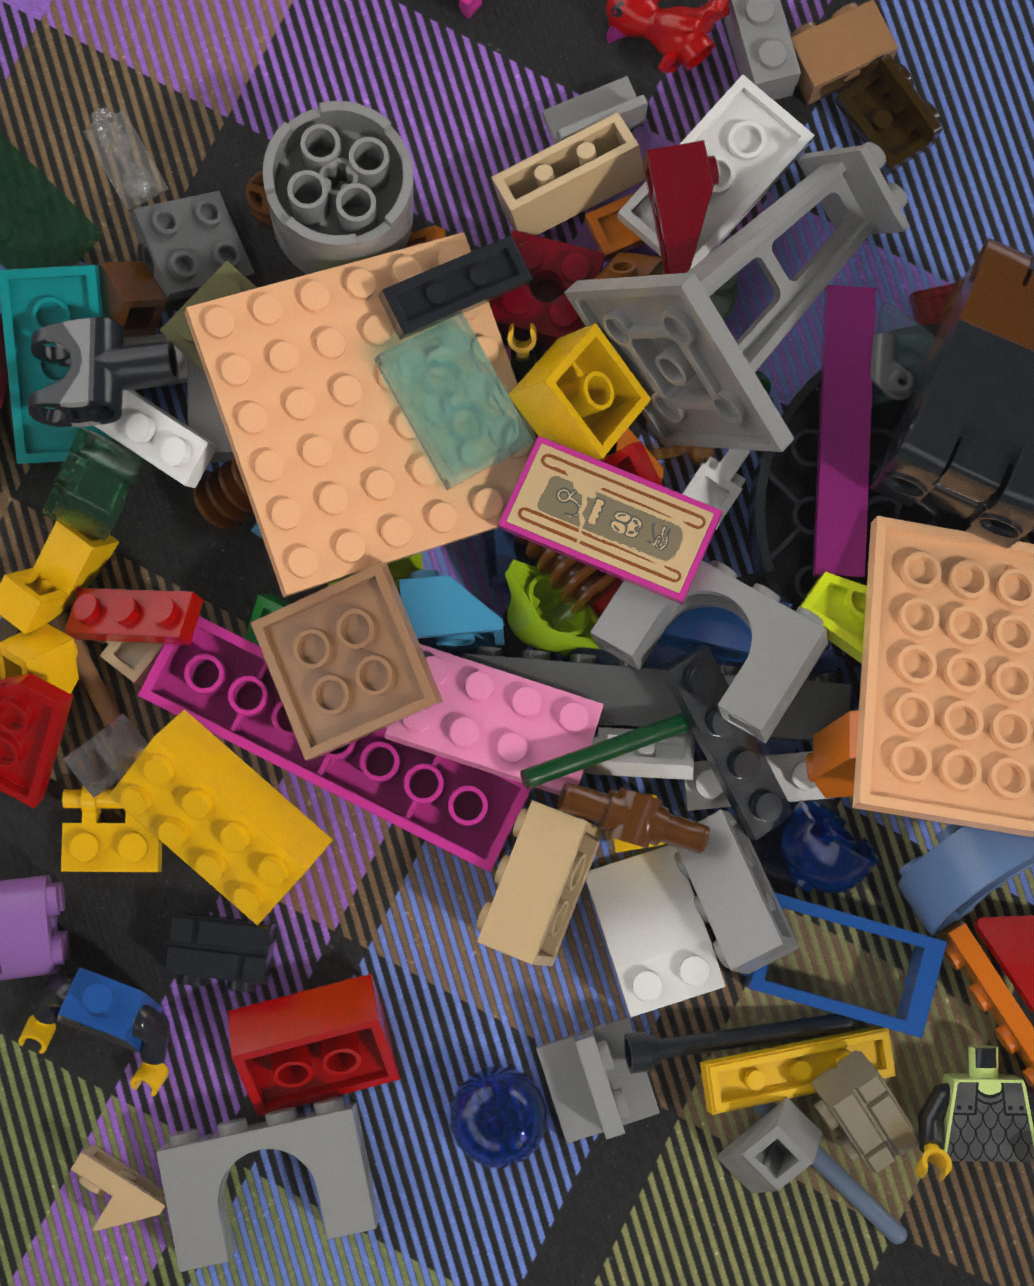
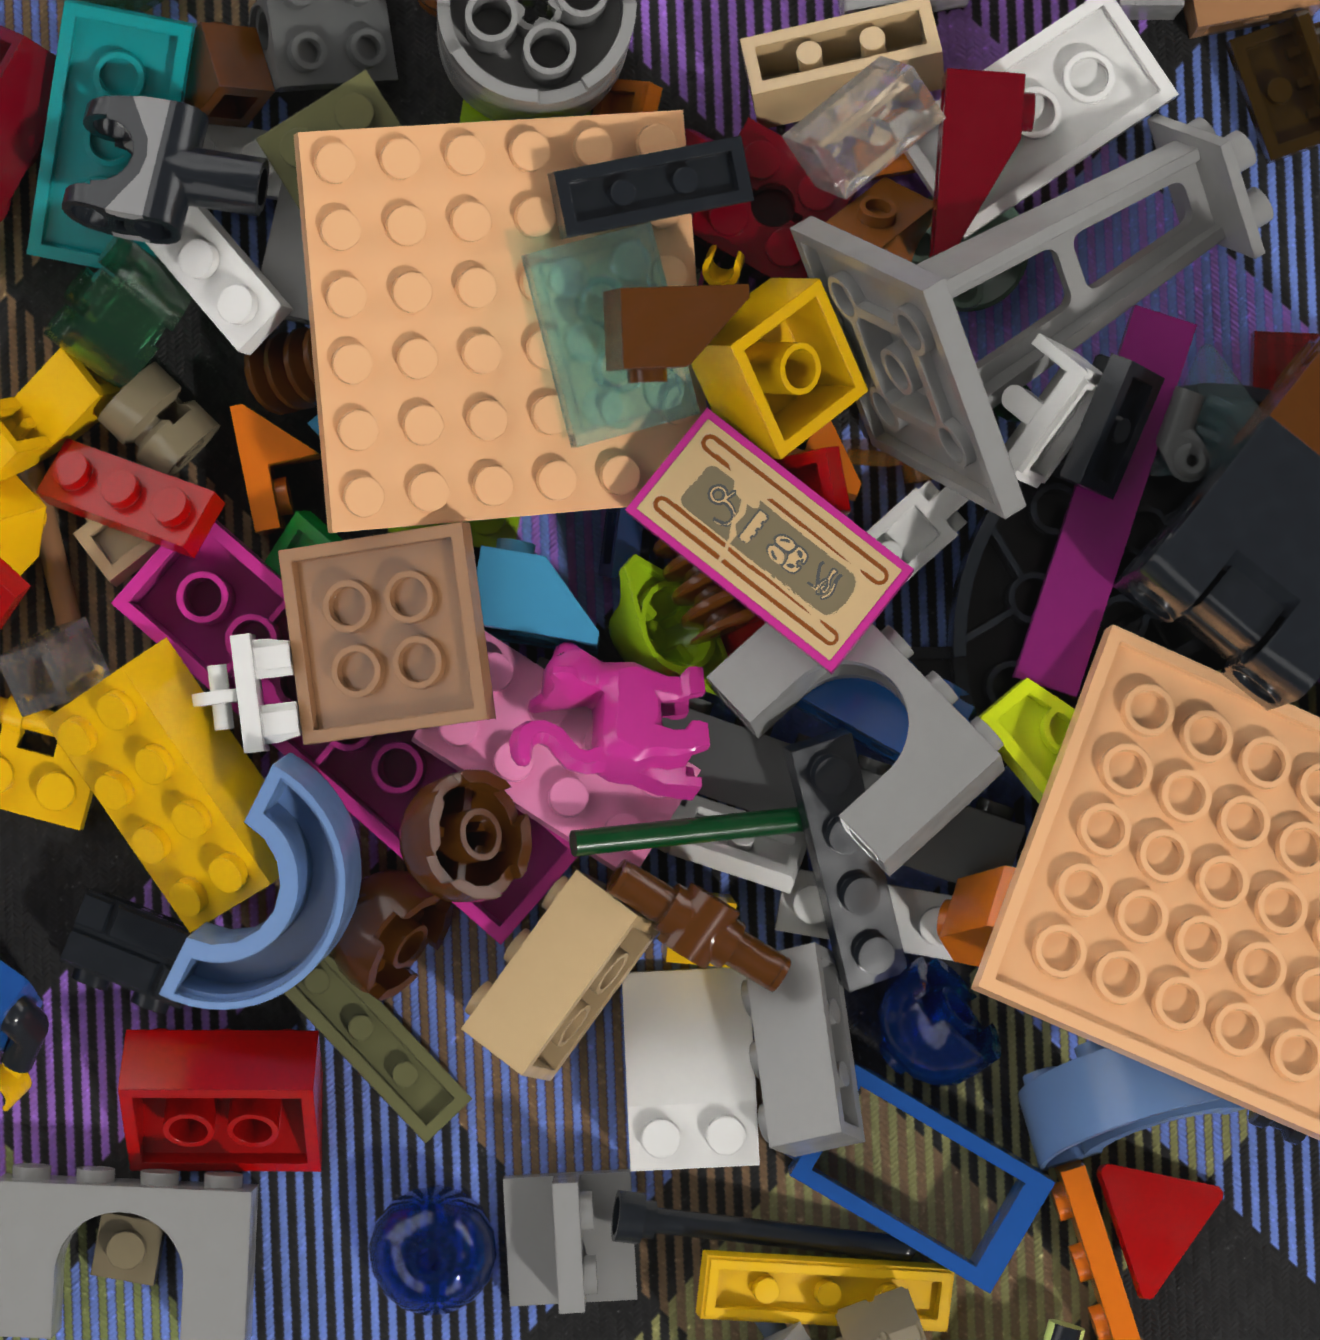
camera: 20 degrees right, 5 degrees up
(137, 555) = (158, 421): none -> dark tan wheel
(225, 559) = (261, 450): none -> orange slope
(268, 752) = (251, 663): none -> white hips
(270, 1176) = (128, 1248): none -> dark tan plate
(343, 880) = (315, 901): none -> medium blue brick
(400, 884) = (390, 932): none -> reddish brown cylinder
(402, 963) = (379, 1049): none -> olive plate
(443, 796) = (465, 837): none -> reddish brown cylinder
(491, 379) = (664, 326): none -> reddish brown slope
(541, 680) = (627, 717): none -> dark pink animal
(598, 207) = (864, 127): none -> clear brick
(795, 373) = (1053, 418): none -> white window
(831, 372) = (1110, 426): none -> black panel

